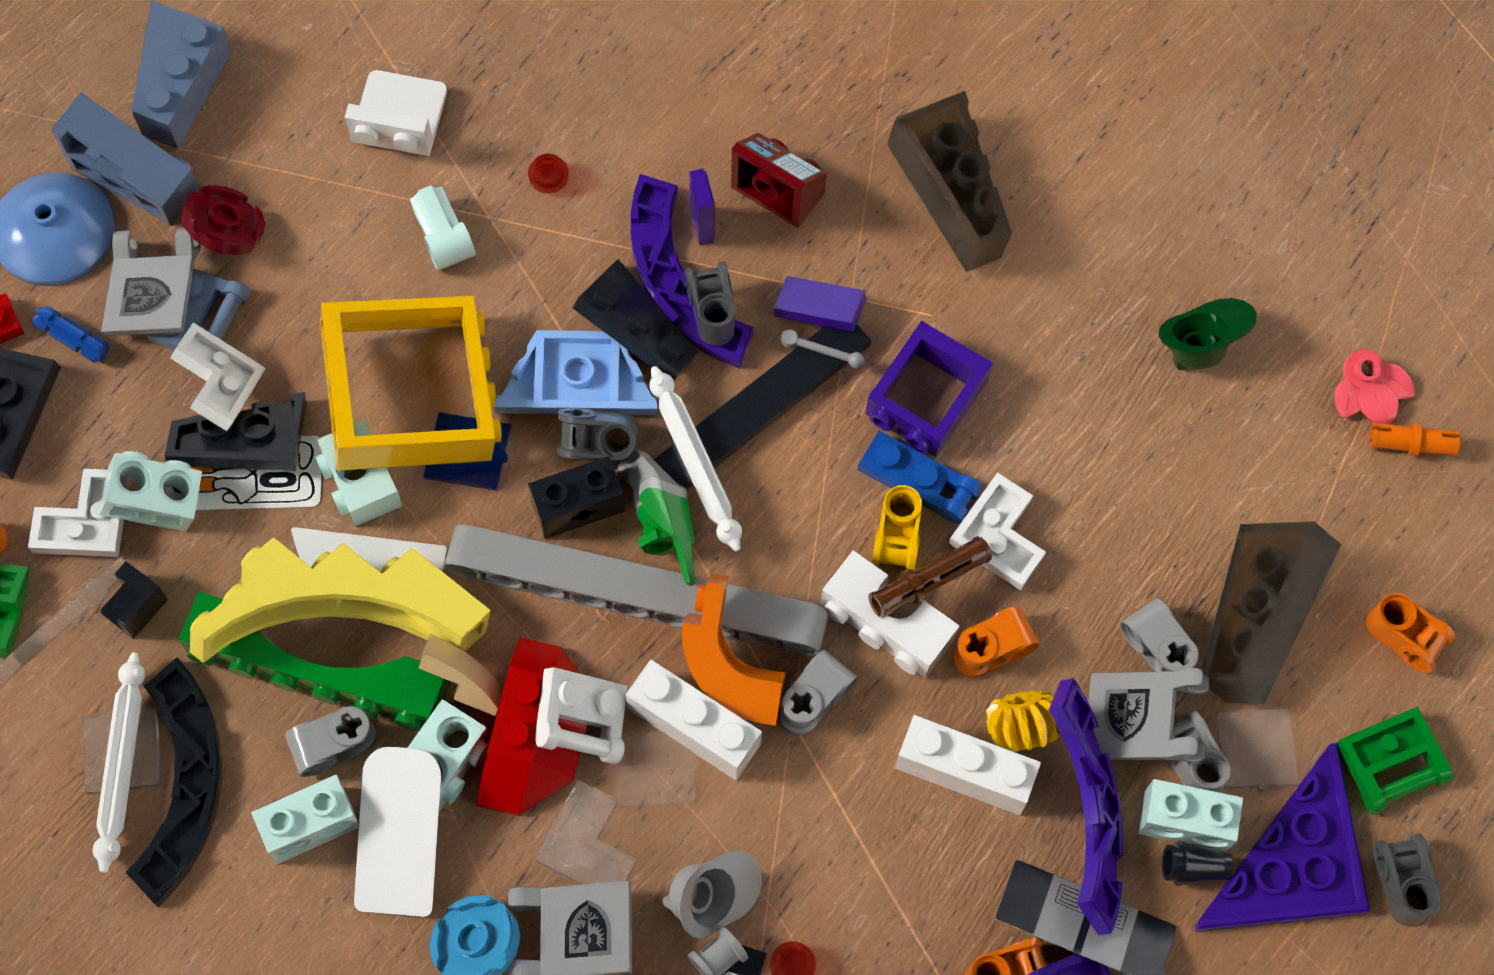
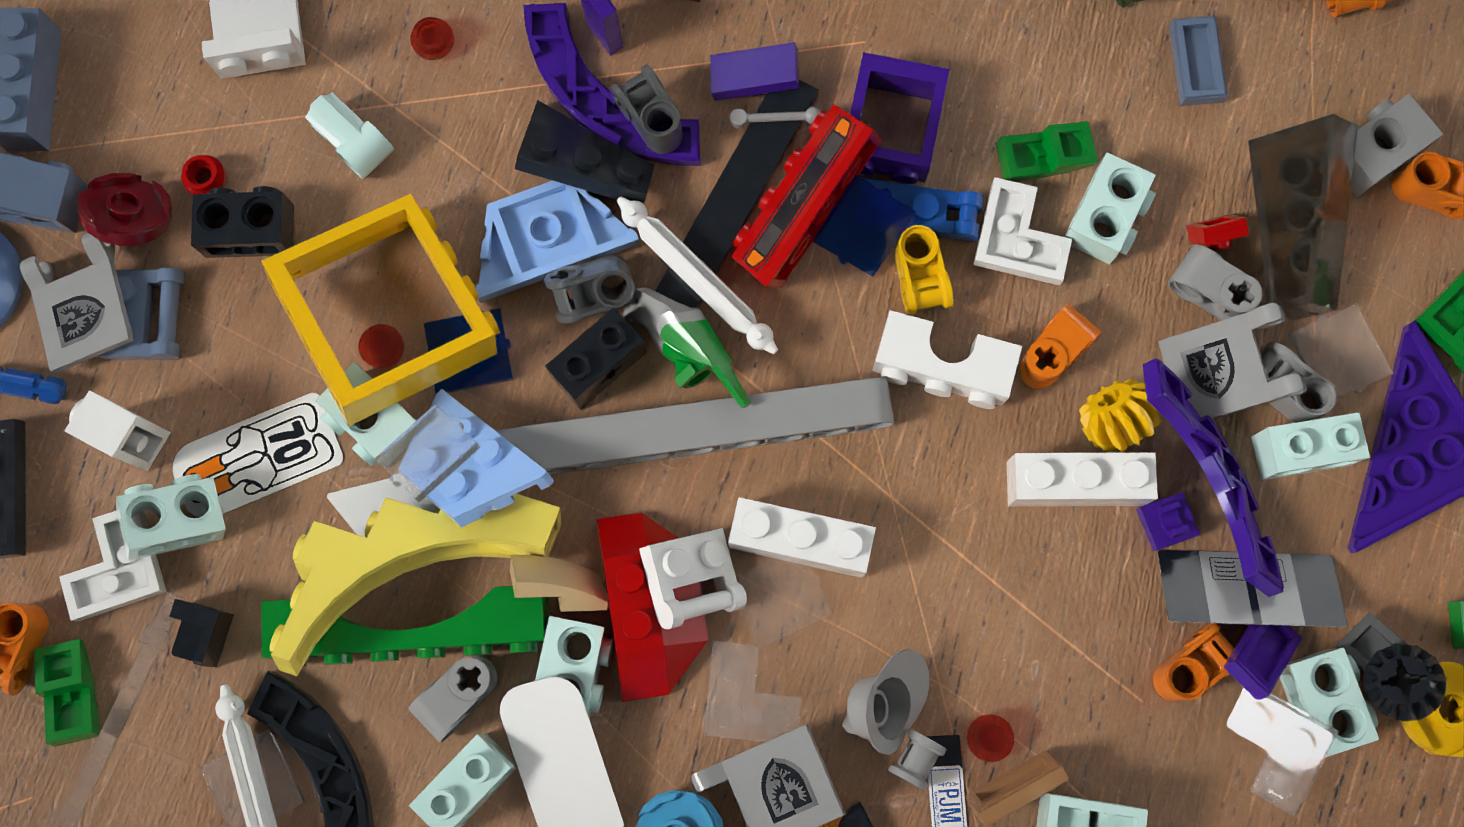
camera: 15 degrees left, 10 degrees up
(137, 400) = (116, 431): none -> white brick
(227, 373) = (194, 363): white plate -> none
(257, 438) = (246, 423): black wing -> none
(301, 207) = (196, 167): none -> red plate
(313, 278) = (241, 233): none -> black brick
(393, 416) = (381, 346): none -> clear red plate
(395, 517) = (427, 453): none -> clear piece
(425, 540) = (487, 476): none -> light blue wing
(739, 687) = (818, 486): orange arch -> none
(817, 425) = (805, 196): none -> red slope
(820, 689) = (909, 459): light grey piece -> none
(861, 470) = (864, 225): none -> clear blue piece
(915, 584) = (965, 322): reddish brown pin -> none
(1034, 836) = (1167, 521): none -> dark purple tile
(1056, 471) = (1046, 153): none -> green slope
(1084, 533) = (1105, 207): none -> light aqua brick
(1182, 596) = (1218, 232): none -> red plate
(1195, 864) = (1329, 491): black cone -> none
(1228, 441) = (1197, 61): none -> sand blue tile
(1392, 568) = (1405, 132): none -> light grey brick

